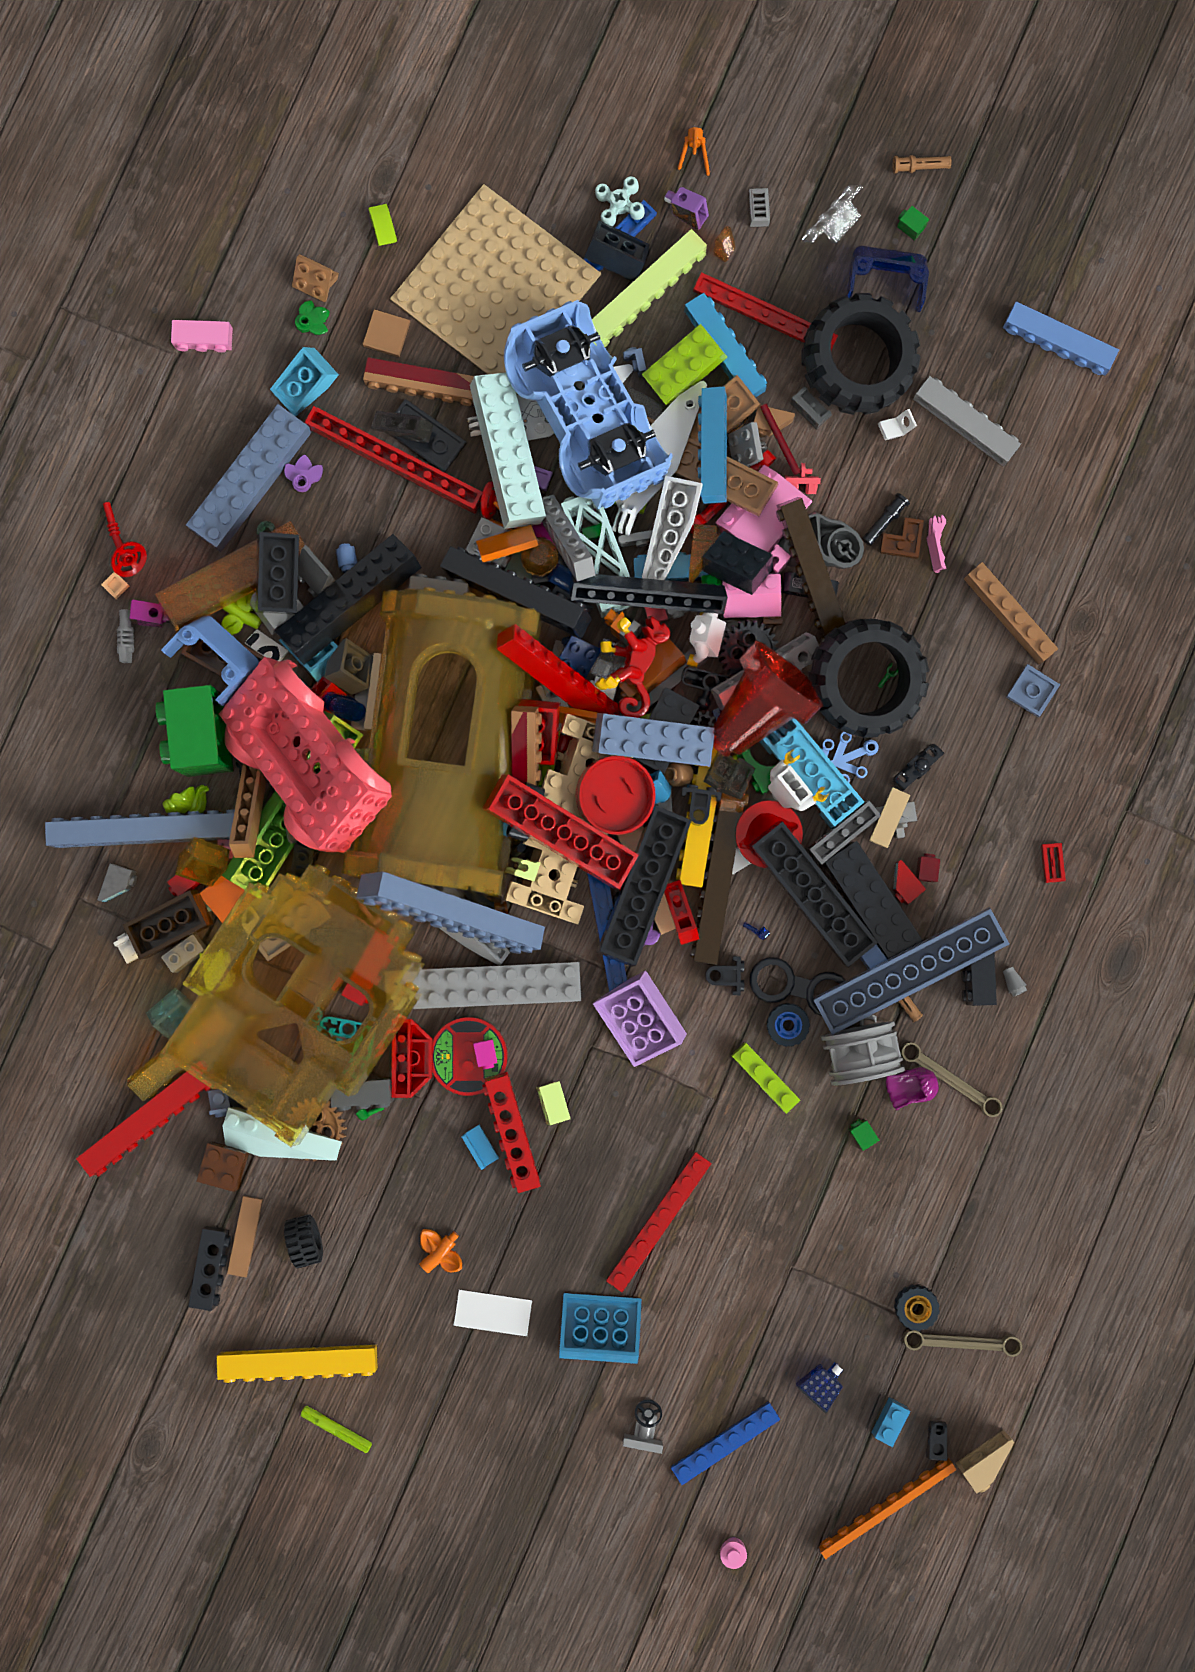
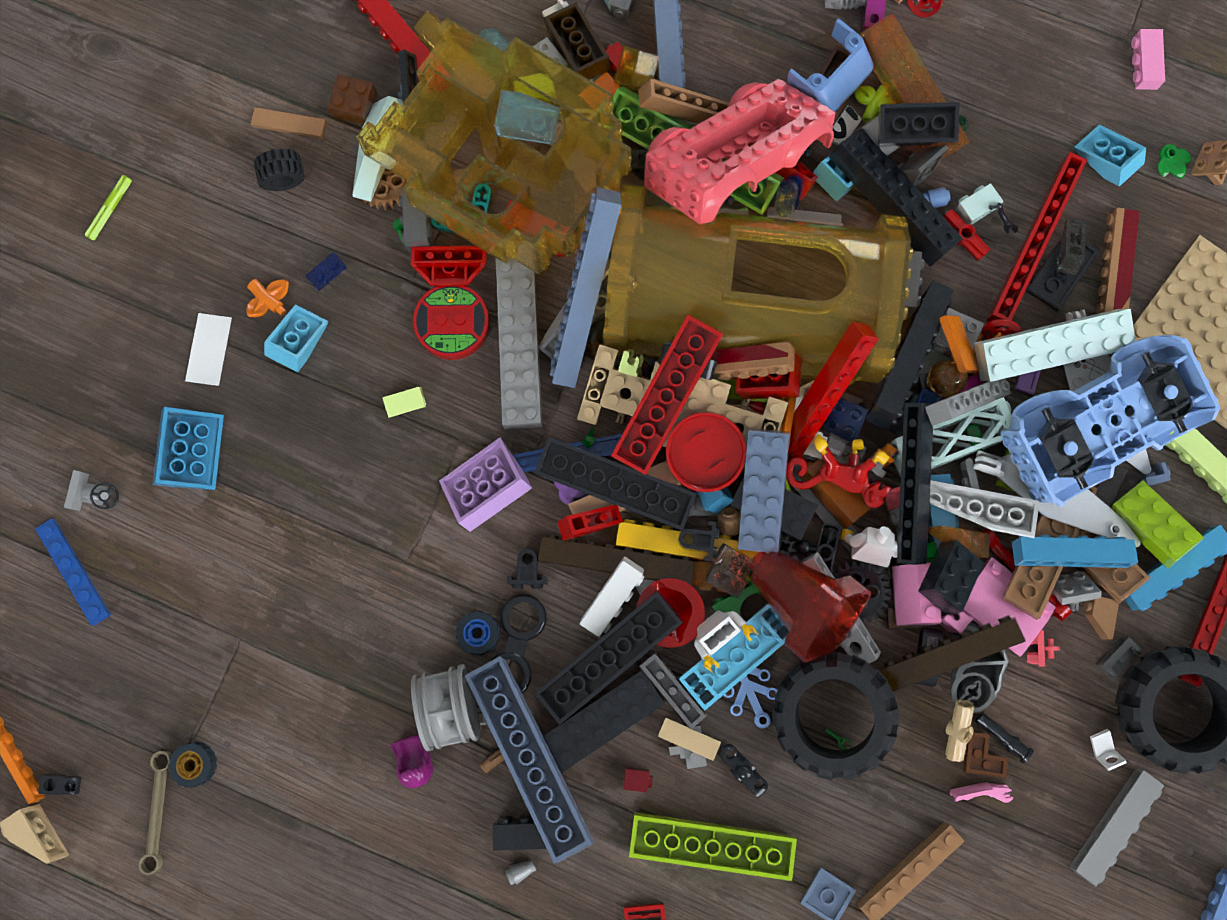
camera: 95 degrees right, 5 degrees down
(187, 800) = (695, 58): lime hair -> none
(193, 731) = (759, 51): green brick -> none
(199, 1298) = (234, 82): black brick -> none
(205, 1103) = (408, 72): none -> black plate
(249, 478) = (1010, 106): sand blue brick -> none
(266, 973) = (526, 118): none -> clear light blue slope
(297, 1362) = (170, 171): yellow brick -> none
(303, 471) = (1018, 157): medium lavender plate -> none
(349, 667) = (828, 199): dark grey slope -> none
(355, 515) = (976, 206): none -> light aqua brick
(375, 487) = (1007, 224): none -> black piece
(386, 333) = (1164, 232): medium nougat tile -> none
(396, 522) = (973, 243): none -> red piece
(411, 1190) = (326, 271): none -> clear blue plate
(480, 1146) = (364, 332): dark azure panel -> none
(483, 1219) = (295, 338): none -> medium azure slope
(485, 1054) = (451, 333): dark pink brick -> none
(529, 1179) = (330, 371): red brick -> none
(596, 913) = (589, 440): none -> green hand
(658, 1222) = (288, 506): red plate -> none
(753, 890) = (611, 597): none -> white brick
(763, 933) = (570, 608): clear blue hand -> none
(765, 1077) = (425, 610): lime brick -> none
(780, 439) = (1084, 623): dark red bar -> none
(822, 1385) = (120, 666): clear blue torso -> none
(863, 1134) = (367, 710): green brick -> none
(873, 957) = (545, 721): medium blue brick -> none
(880, 561) = (959, 730): none -> tan piece
(890, 1422) = (81, 736): dark azure brick -> none
(906, 884) = (620, 756): red slope -> none
(951, 1080) = (419, 804): dark tan piece -> none
(989, 797) = (713, 846): none -> lime brick

